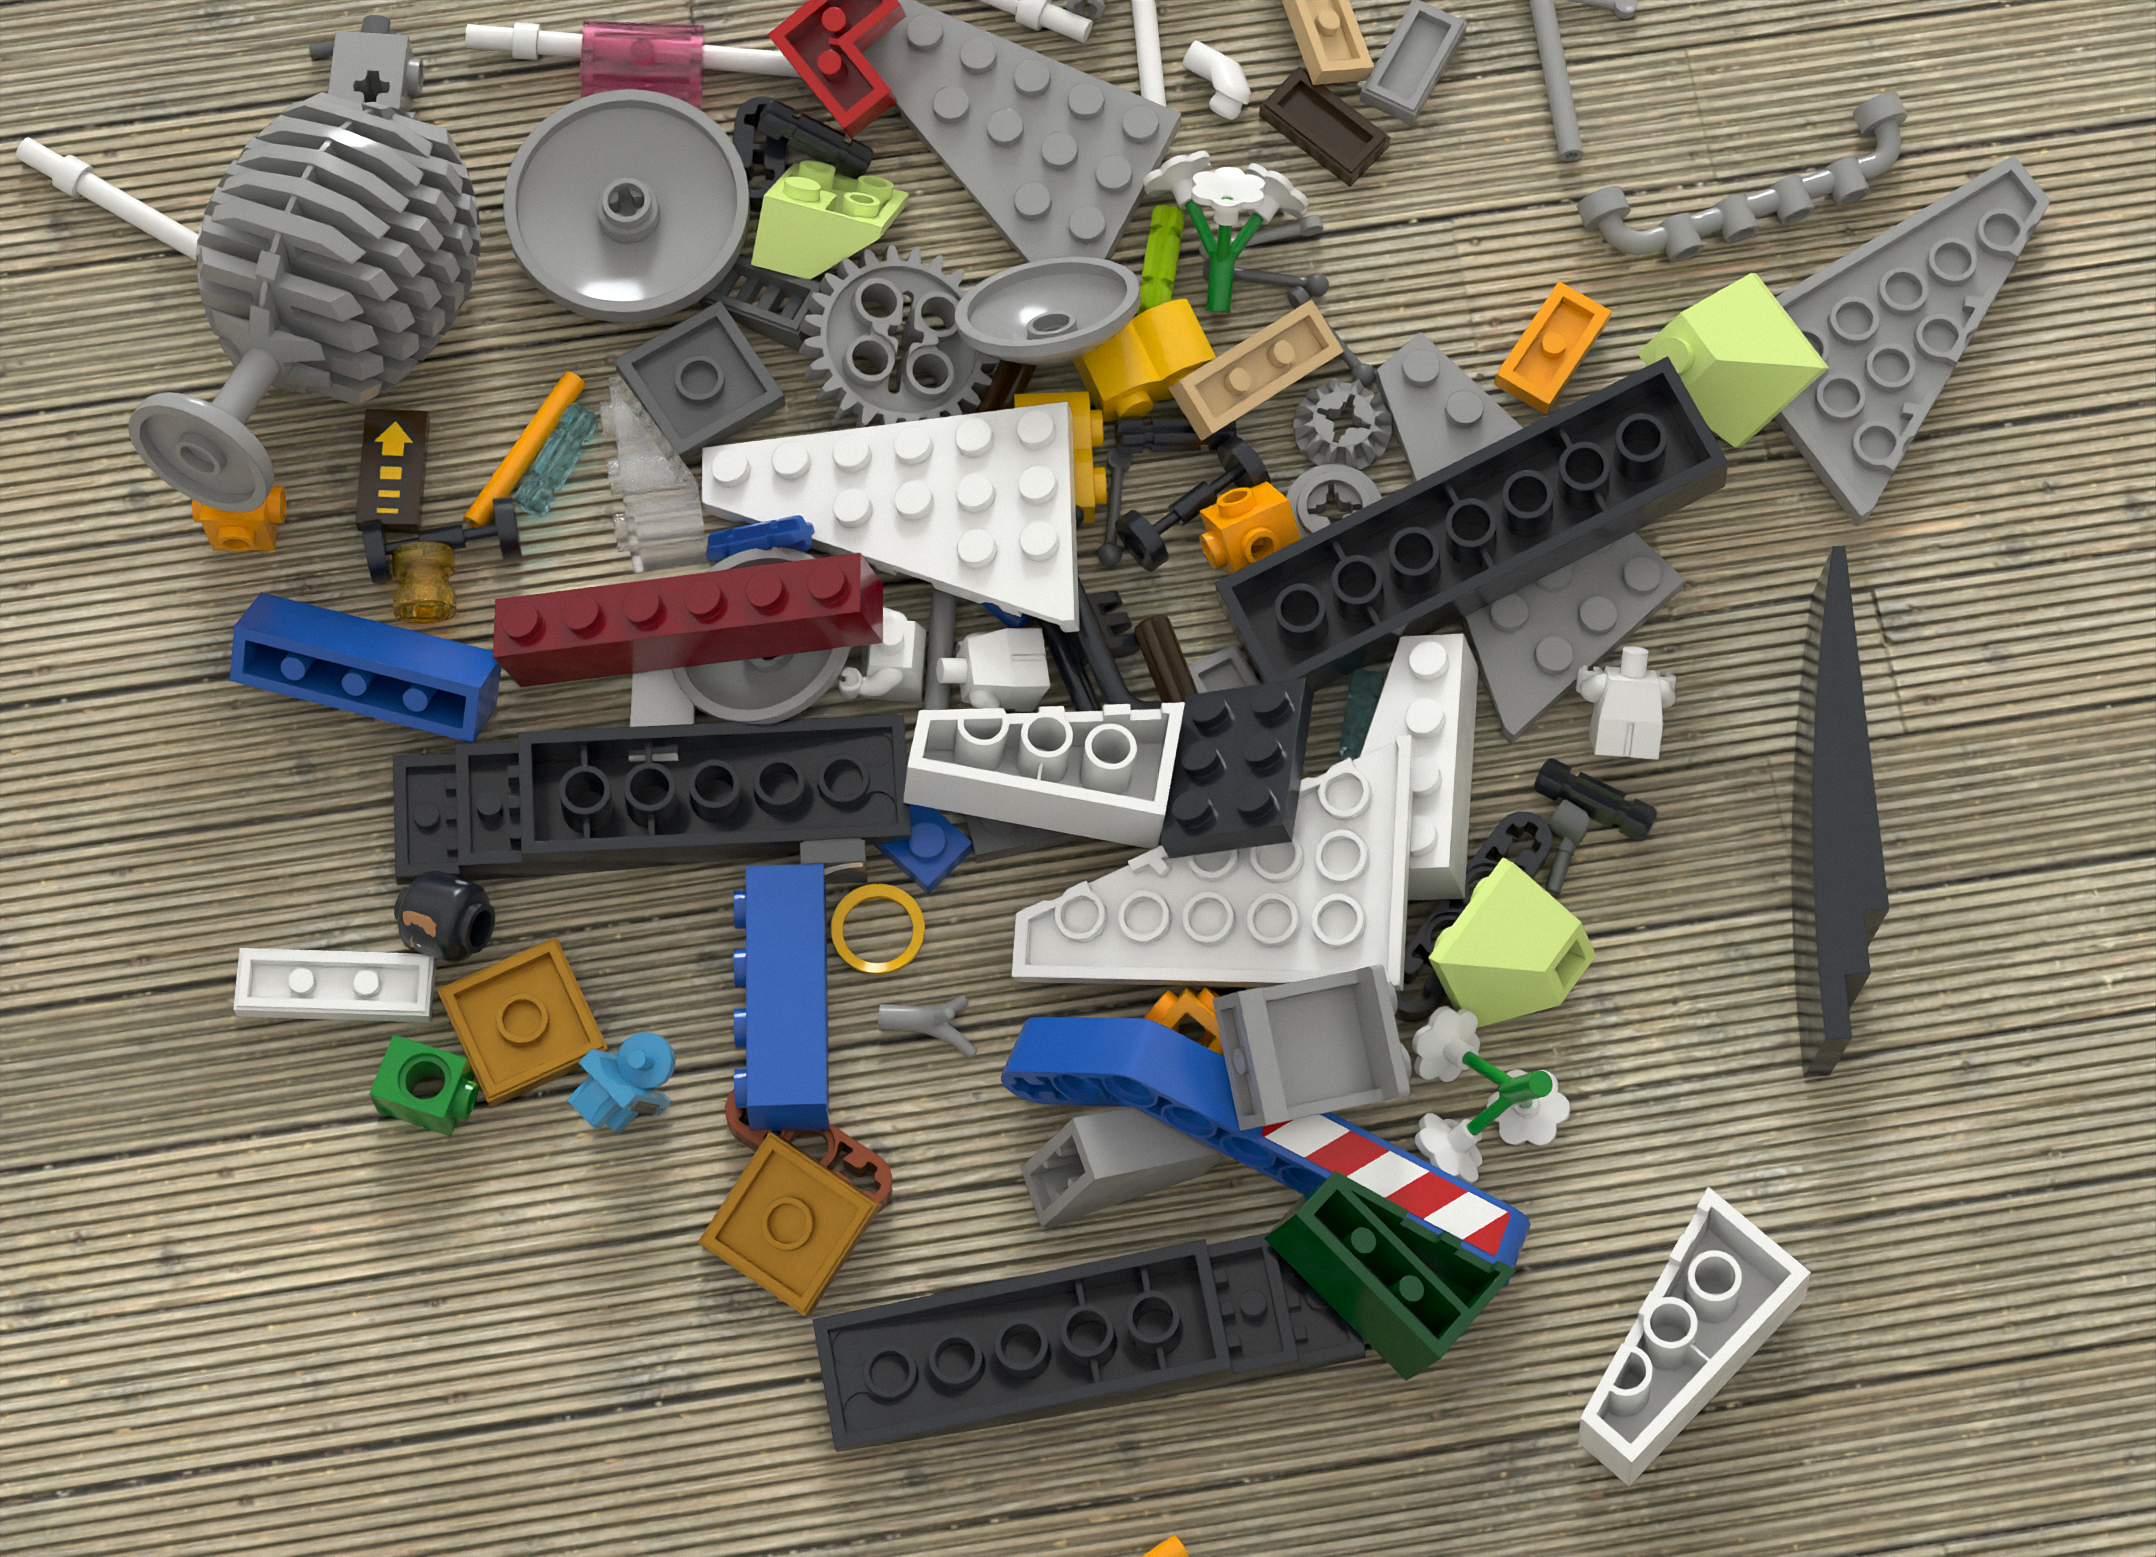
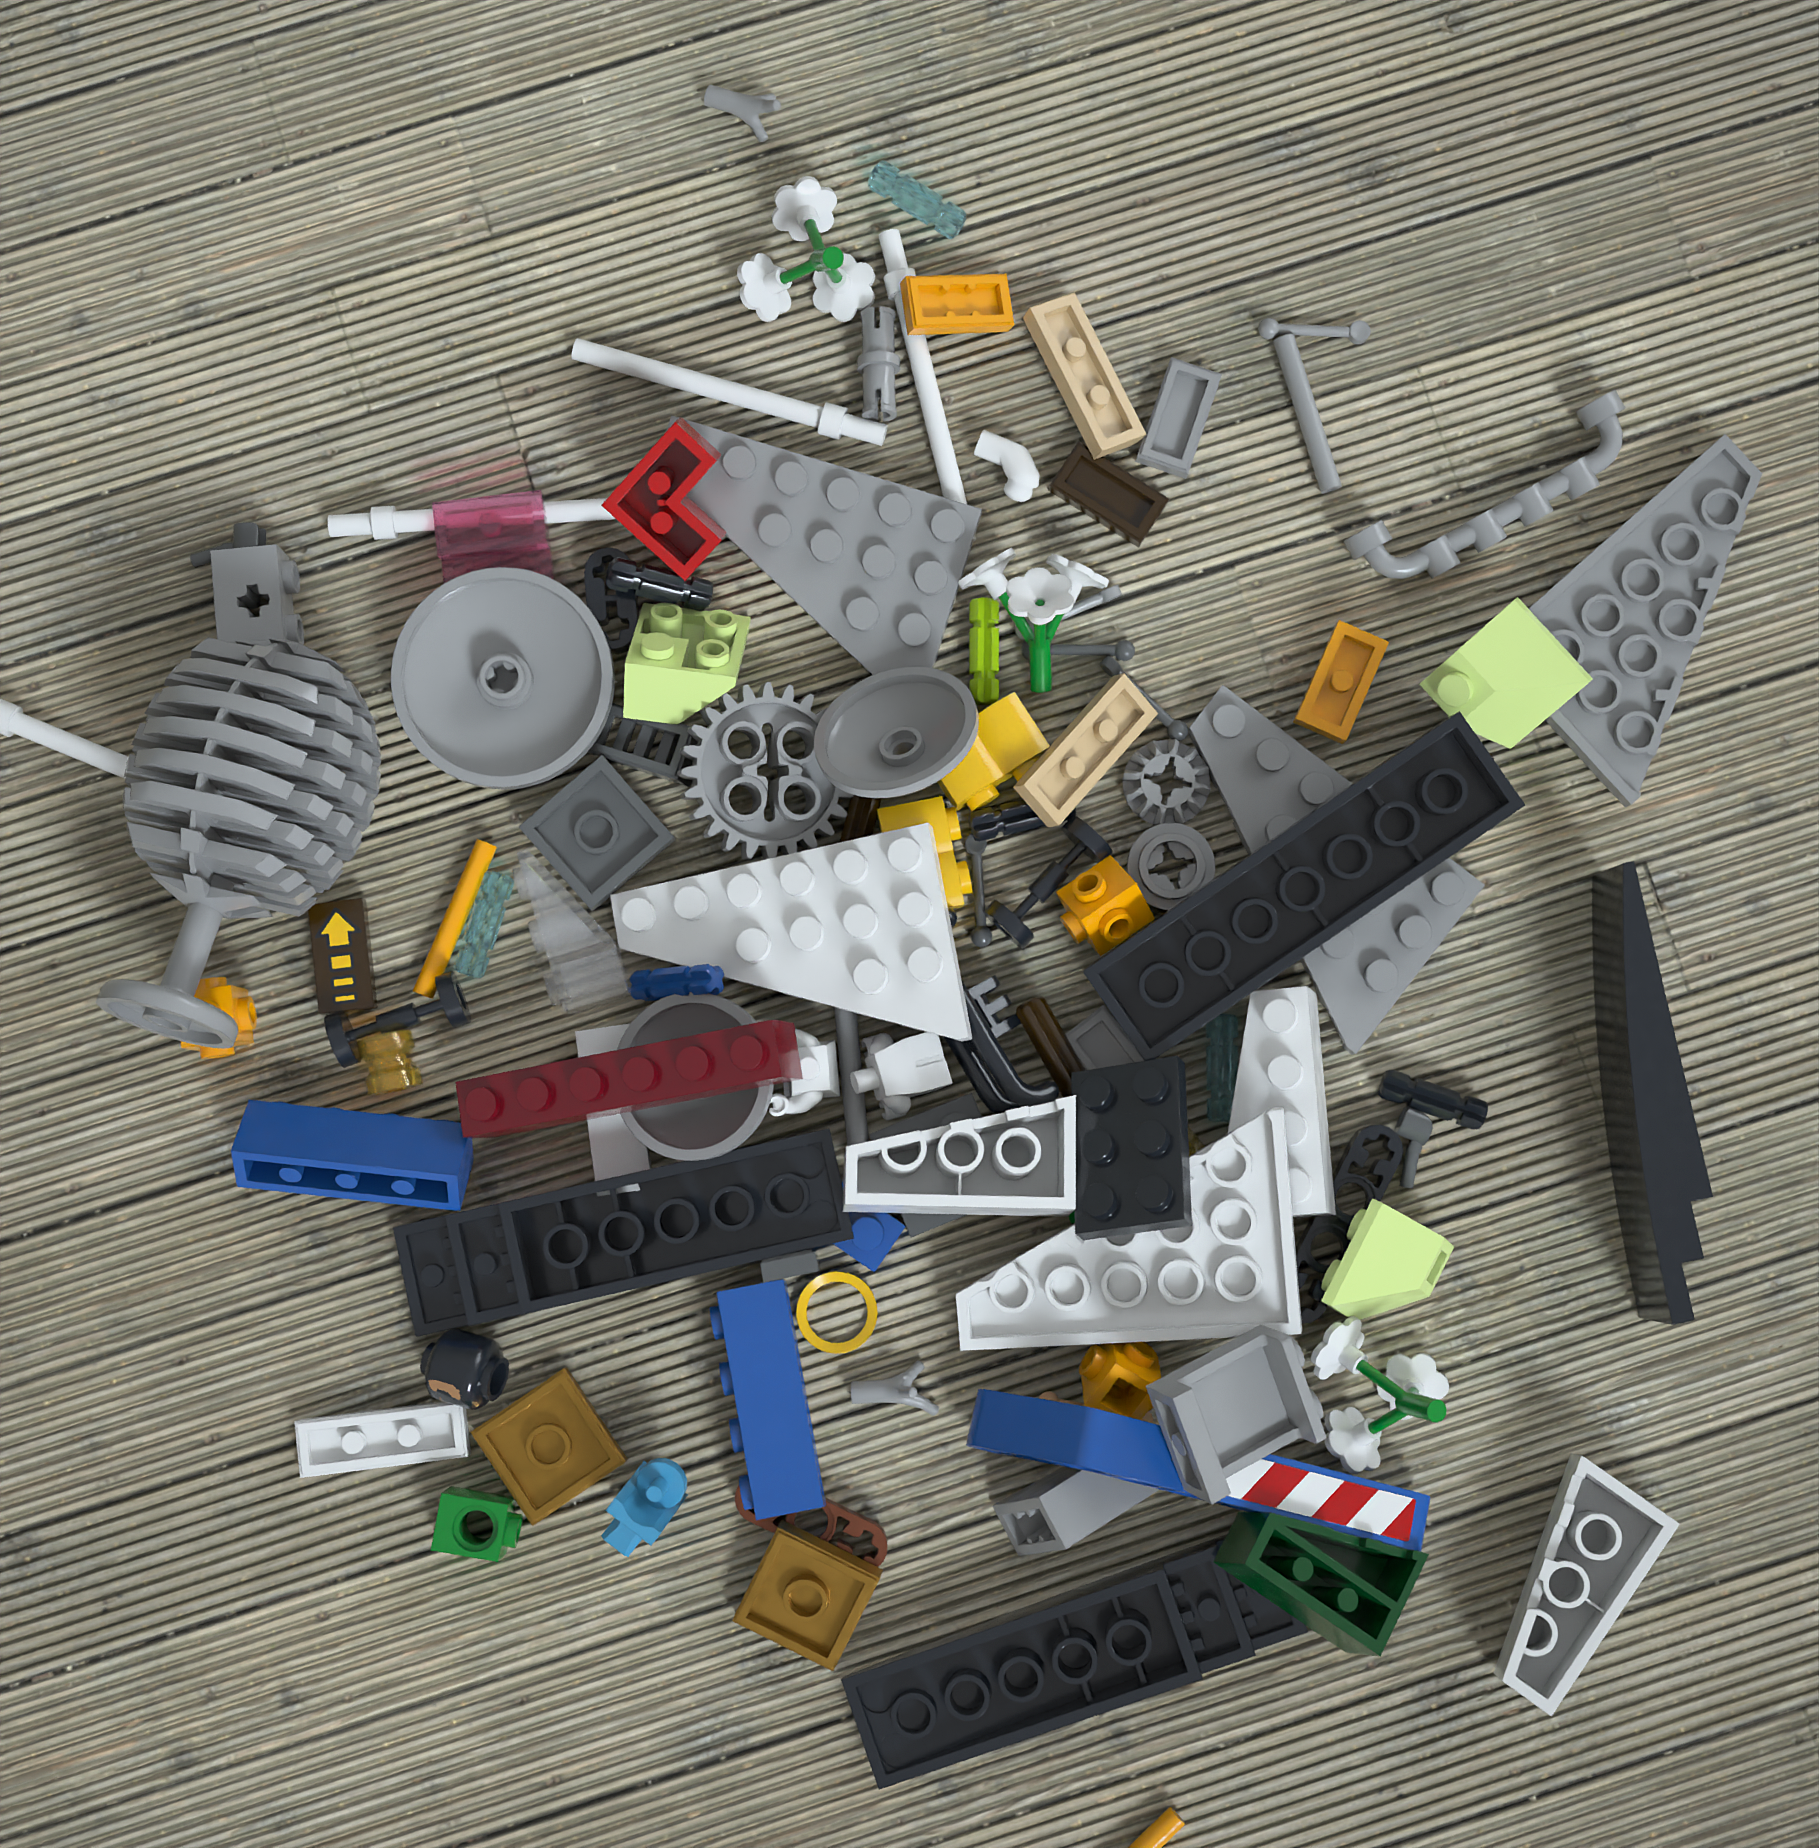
camera: 10 degrees left, 15 degrees up
(1627, 705) = (1452, 1019): white piece -> none

